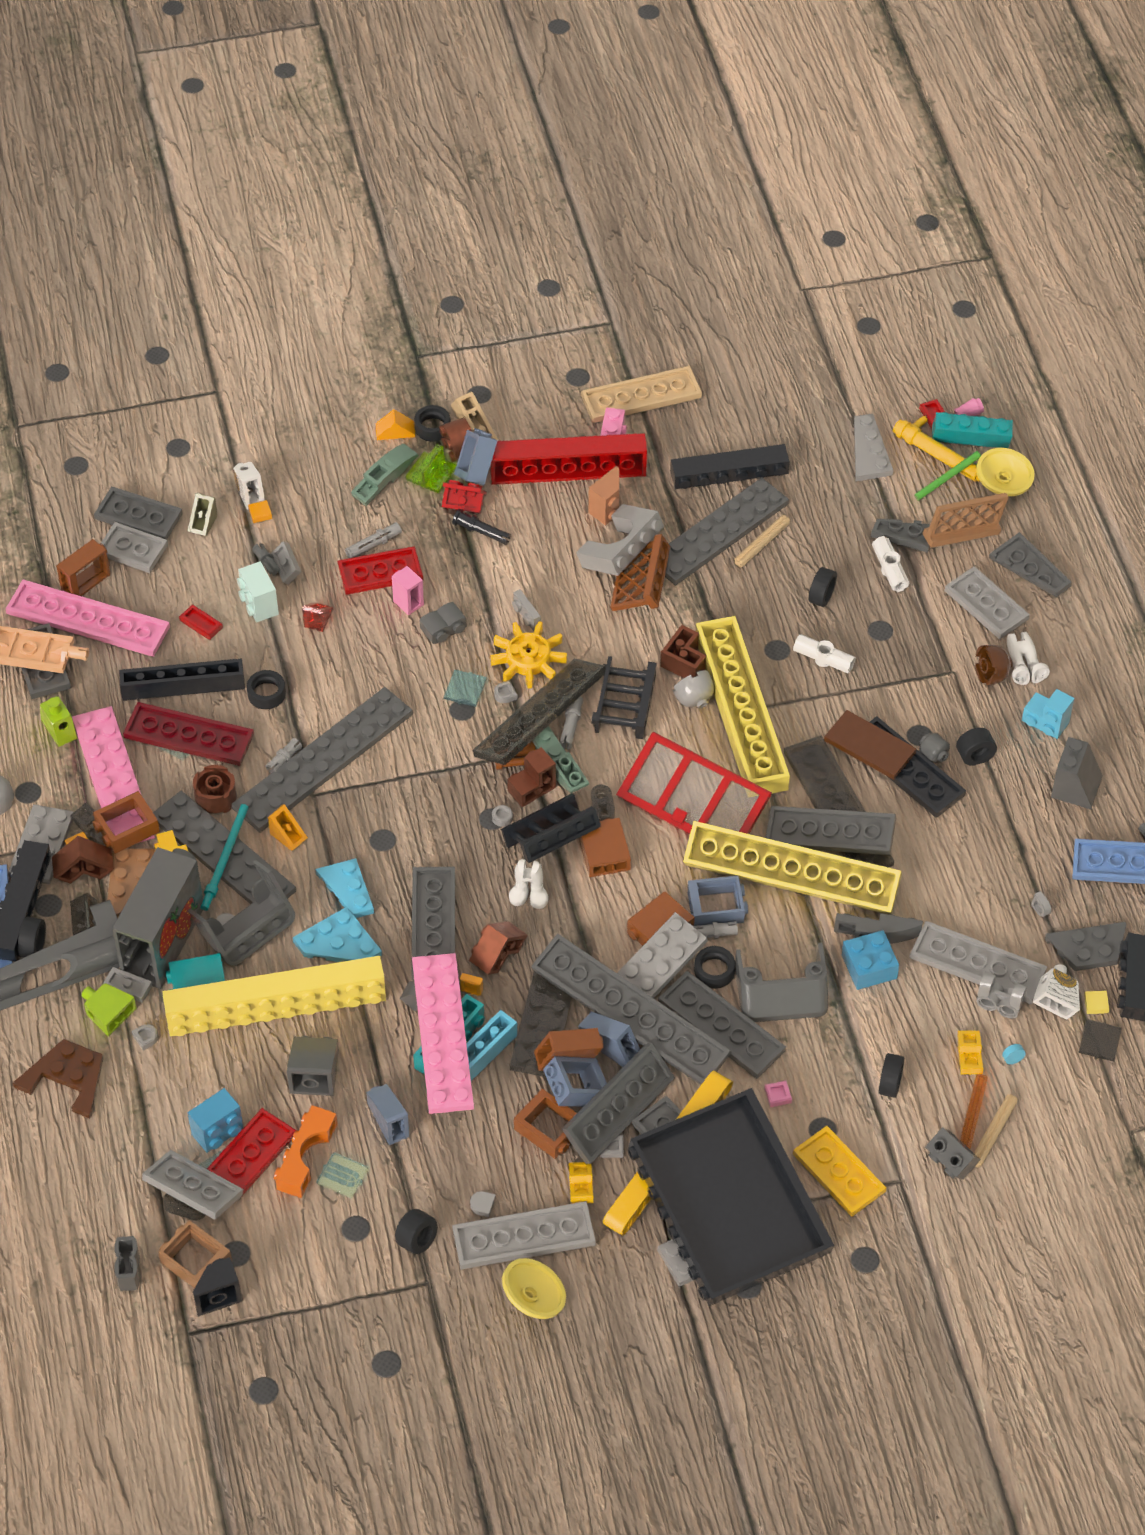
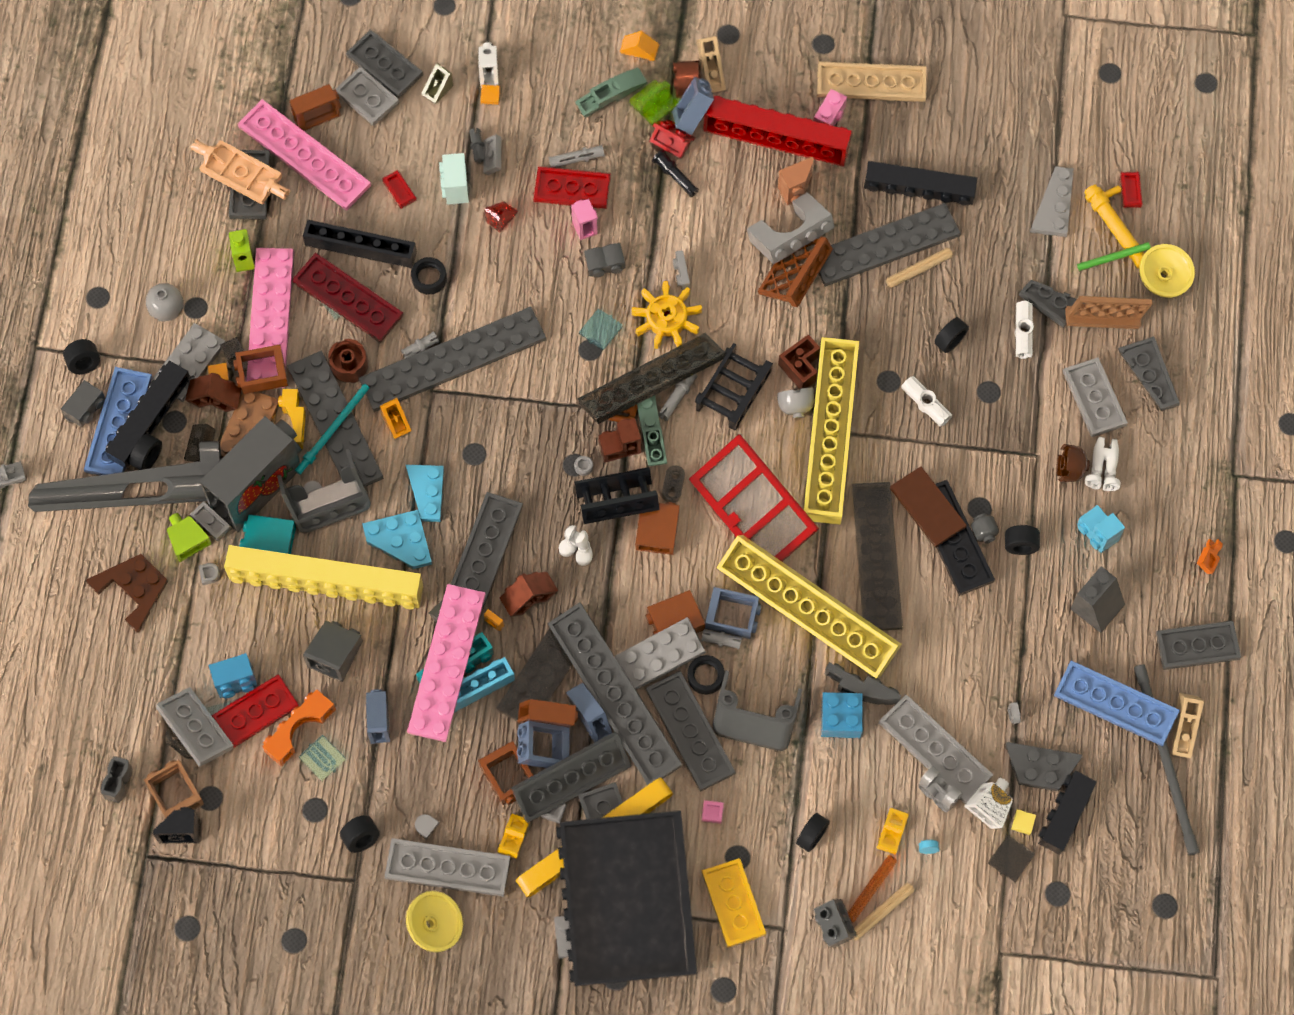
camera: 20 degrees right, 15 degrees up
(430, 412) = (672, 40): black tyre -> none
(505, 692) = (632, 345): light grey tile -> none
(832, 829) = (858, 580): dark grey plate -> none
(971, 408) = (1164, 192): bright pink cone -> none
(972, 430) = (1155, 217): teal brick -> none

